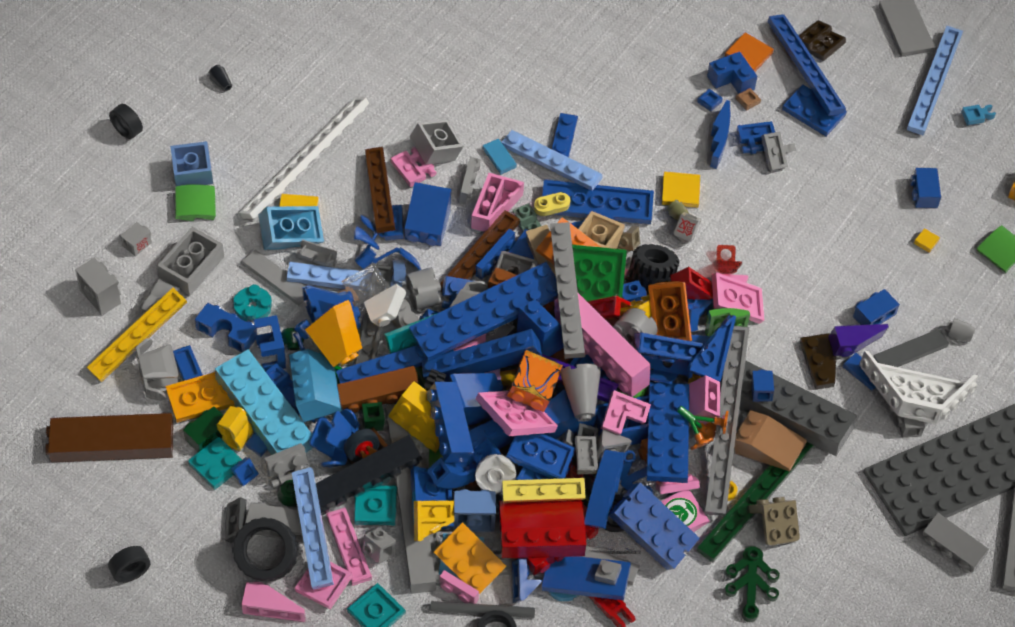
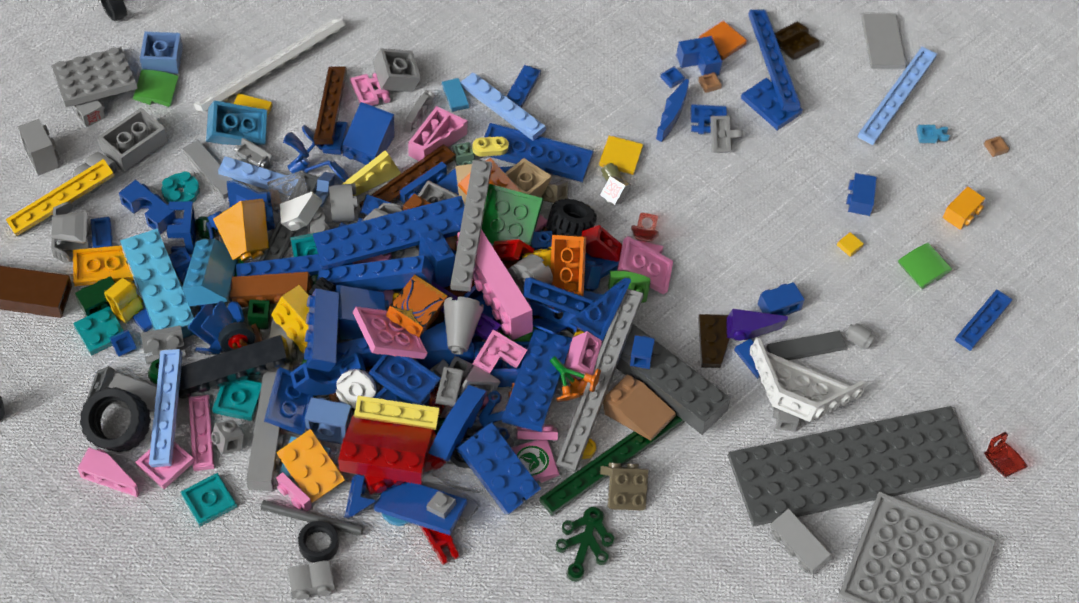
camera: 10 degrees right, 0 degrees up
(130, 202) = (94, 76): none -> light grey plate
(431, 517) = (281, 418): yellow wing -> none
(445, 252) = (374, 173): none -> light yellow wing

